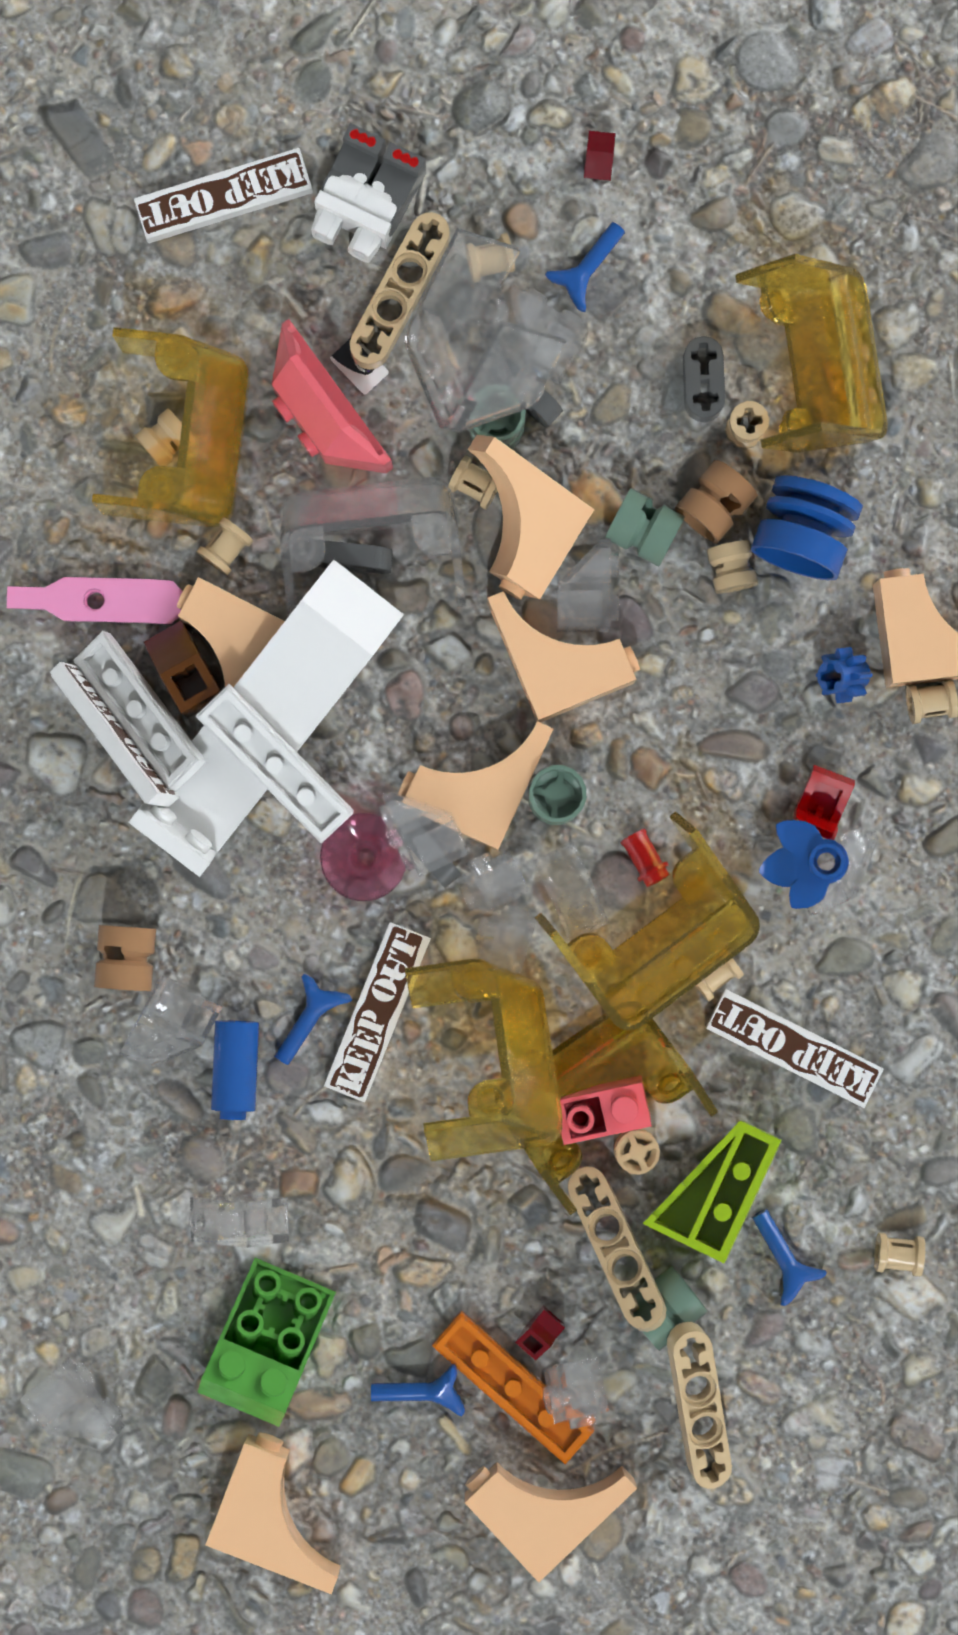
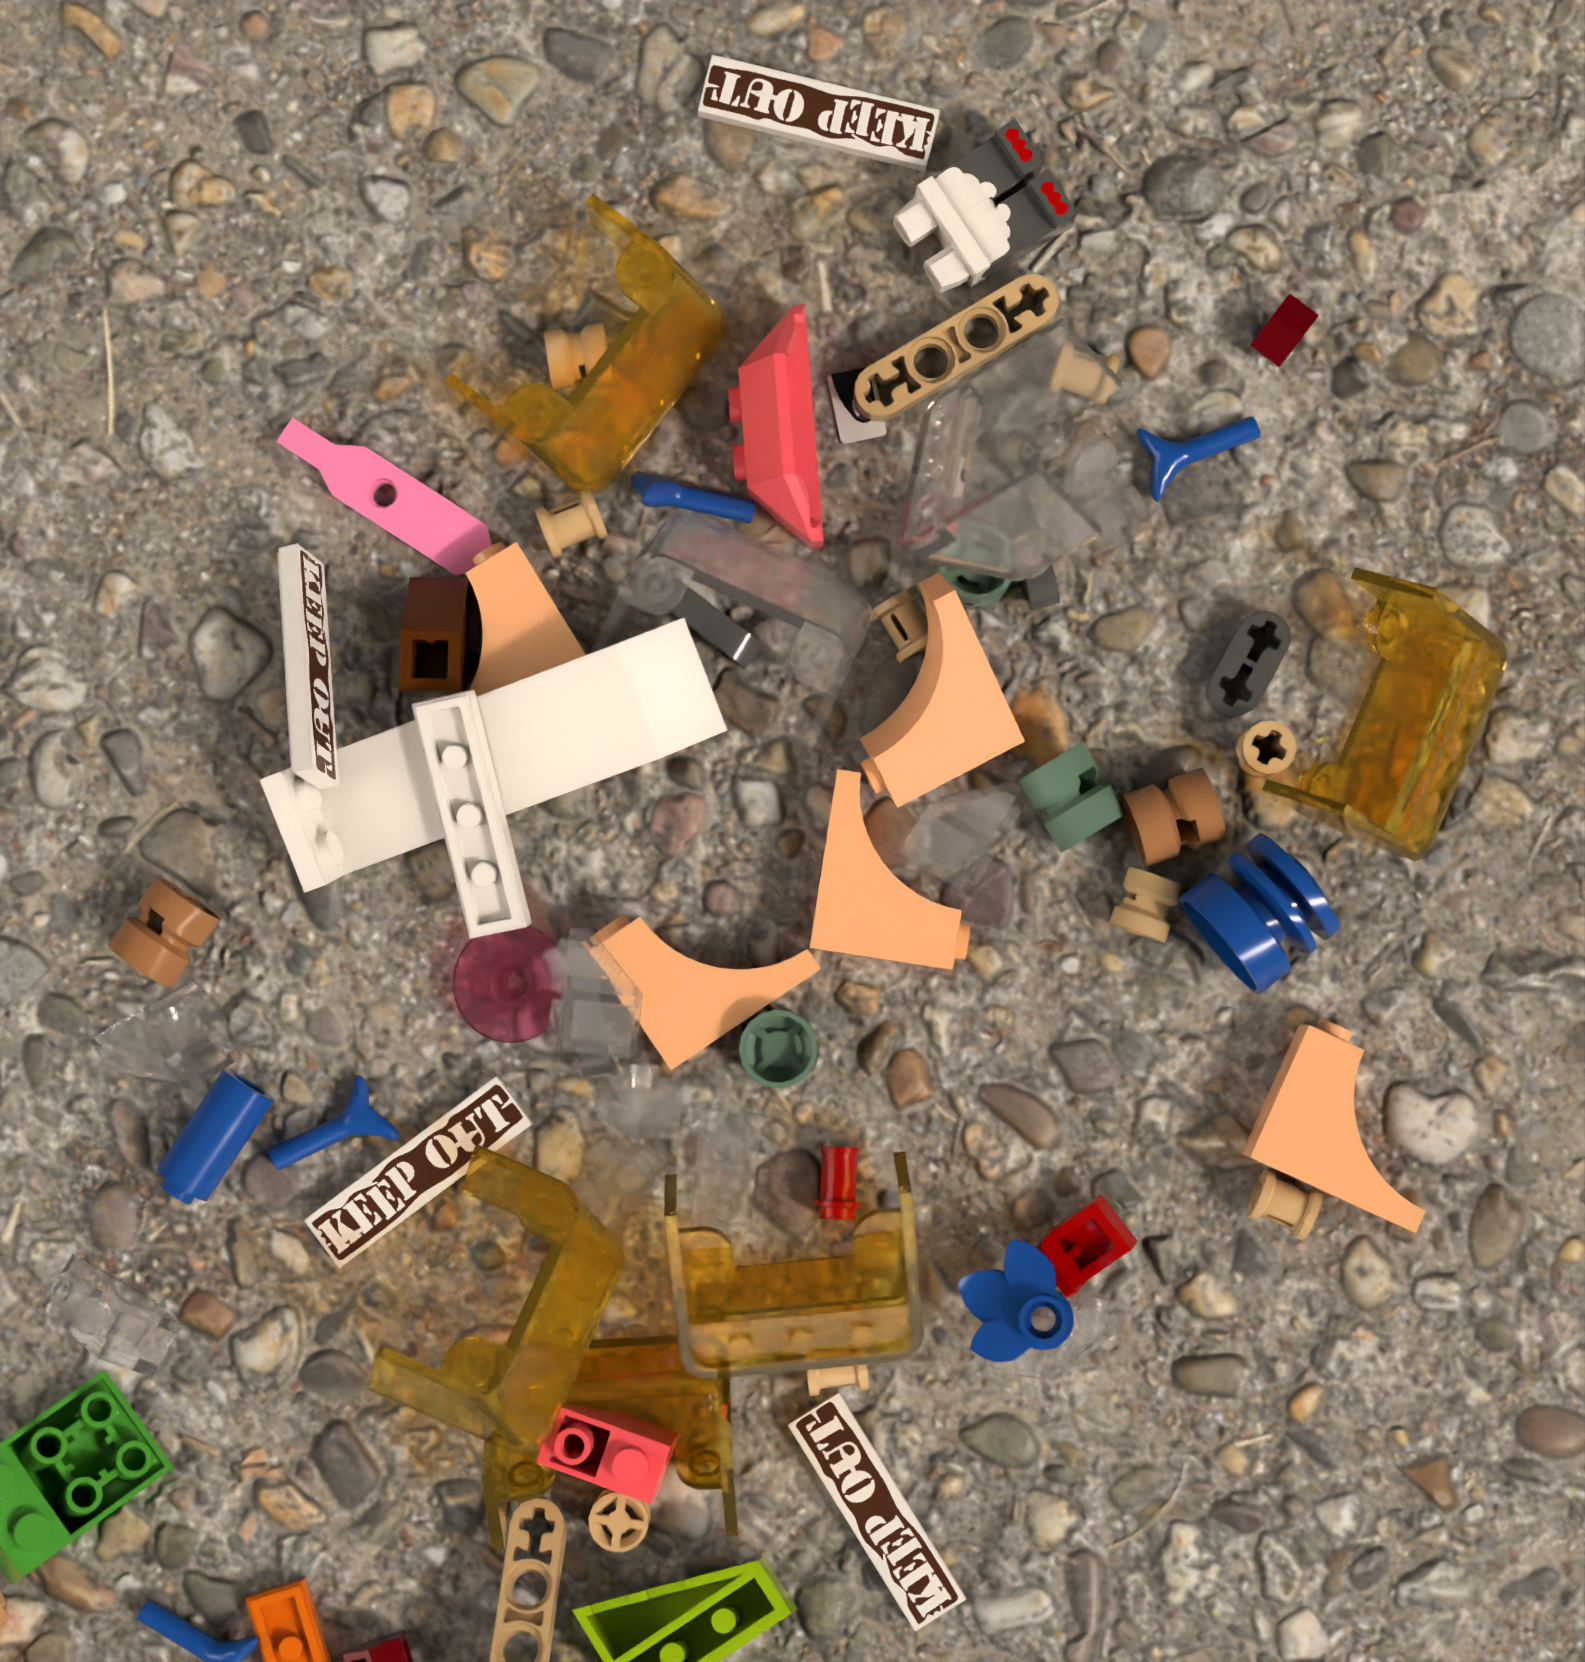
camera: 30 degrees right, 0 degrees up
(139, 711) = (354, 656): white tile -> none
(271, 491) = (664, 492): none -> blue piece
(844, 675) = (1199, 1111): blue gear -> none

